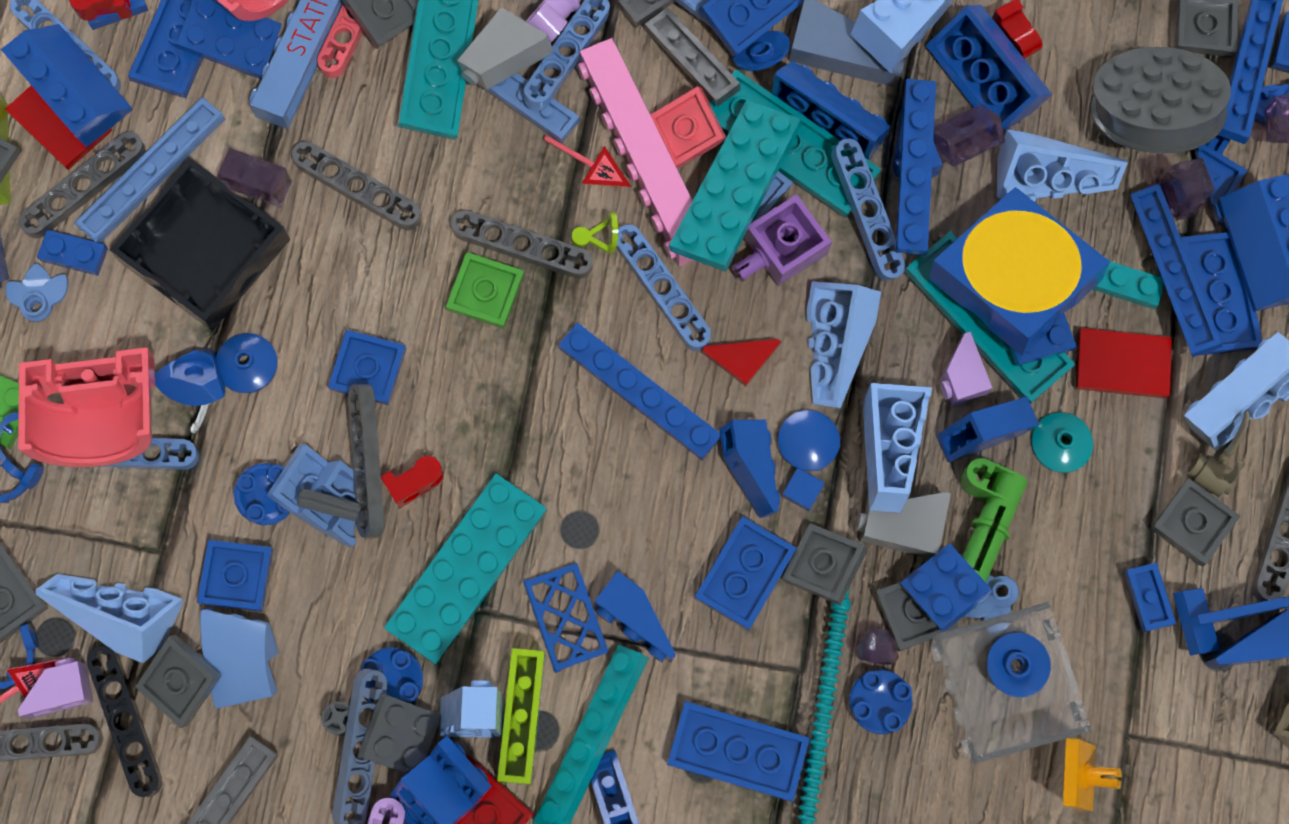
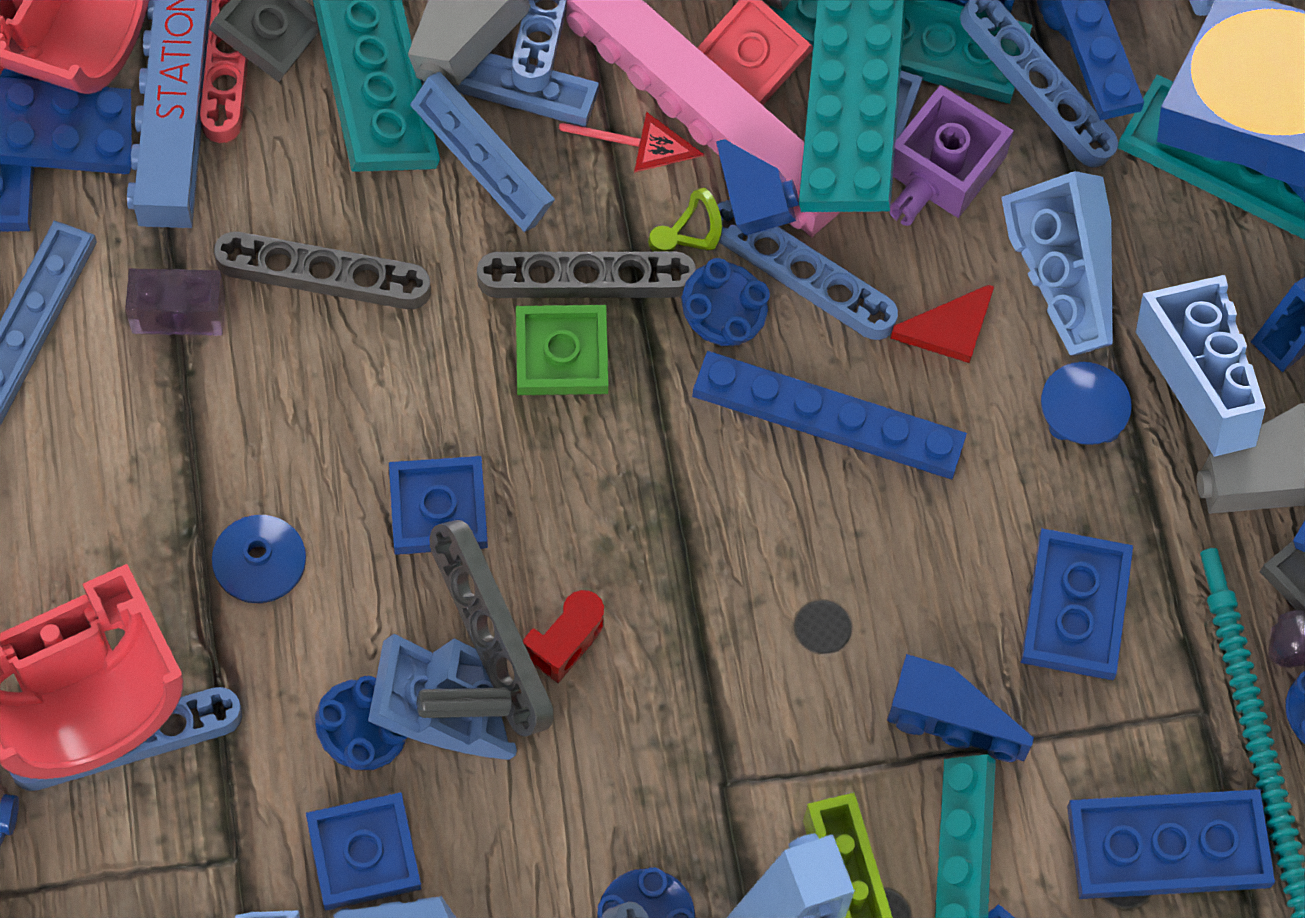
camera: 20 degrees left, 10 degrees down
(192, 381) = (199, 601): blue hat -> none
(200, 244) = (133, 416): black tile -> none
(465, 569) = (687, 733): teal plate -> none
(484, 140) = (482, 151): none -> medium blue plate
(592, 624) = (863, 712): blue window -> none
(601, 294) = (725, 303): none -> blue dish
(645, 226) = (756, 190): none -> blue slope
(750, 460) = (1023, 454): blue slope -> none
(803, 489) = (1105, 470): blue tile -> none
(825, 564) = (1180, 552): dark grey plate -> none
(965, 374) = (1256, 248): lavender slope -> none

